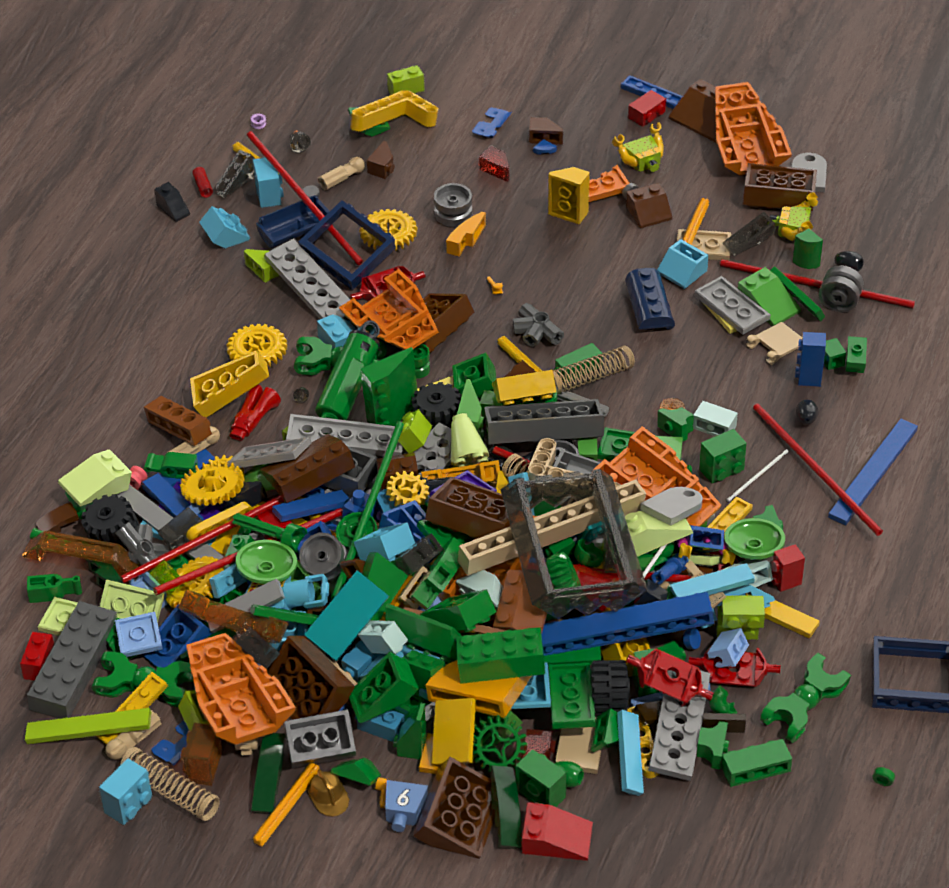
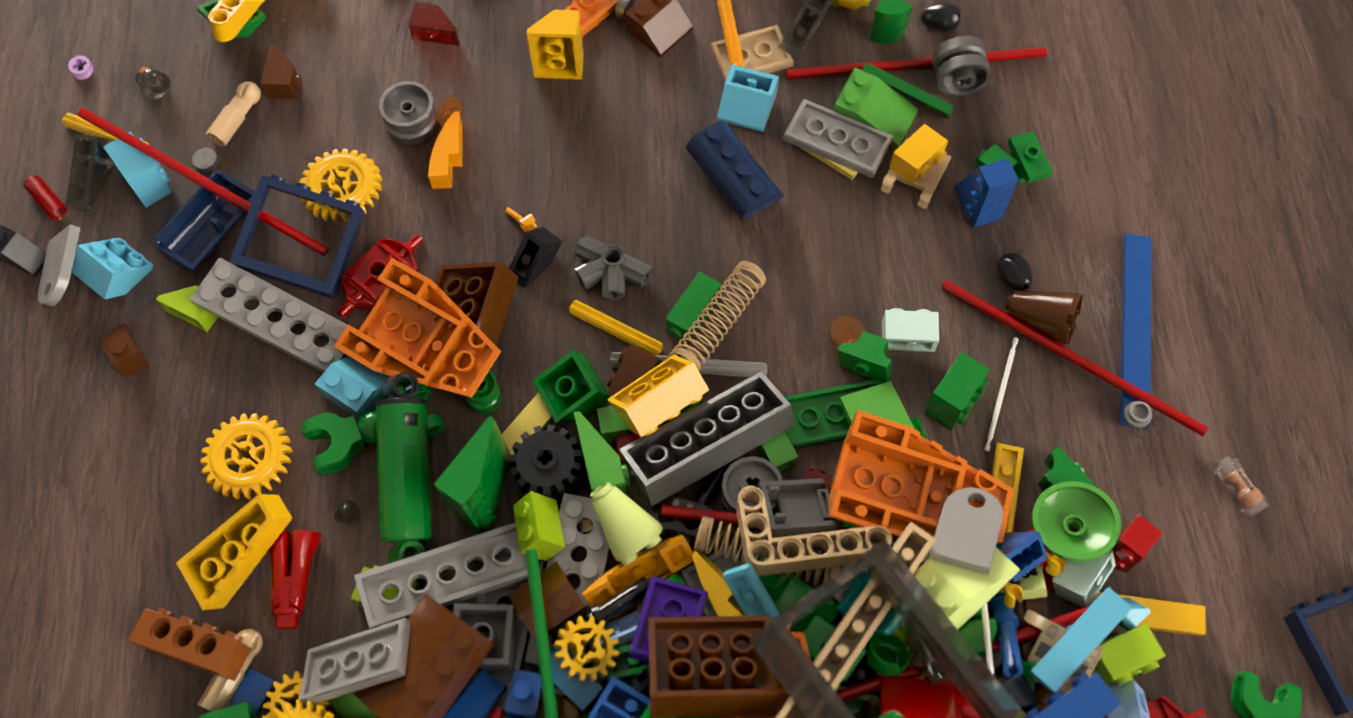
camera: 25 degrees left, 20 degrees up
(193, 216) = (58, 265): none -> light grey tile
(210, 274) = (123, 350): none -> reddish brown slope
(480, 207) = (447, 108): none -> clear orange wheel
(491, 304) = (534, 255): none -> black slope
(781, 328) = (919, 154): none -> yellow brick
(816, 439) = (1047, 312): none -> reddish brown cone
(839, 509) = (1138, 414): none -> light grey plate
(888, 579) = (1246, 494): none -> clear piece

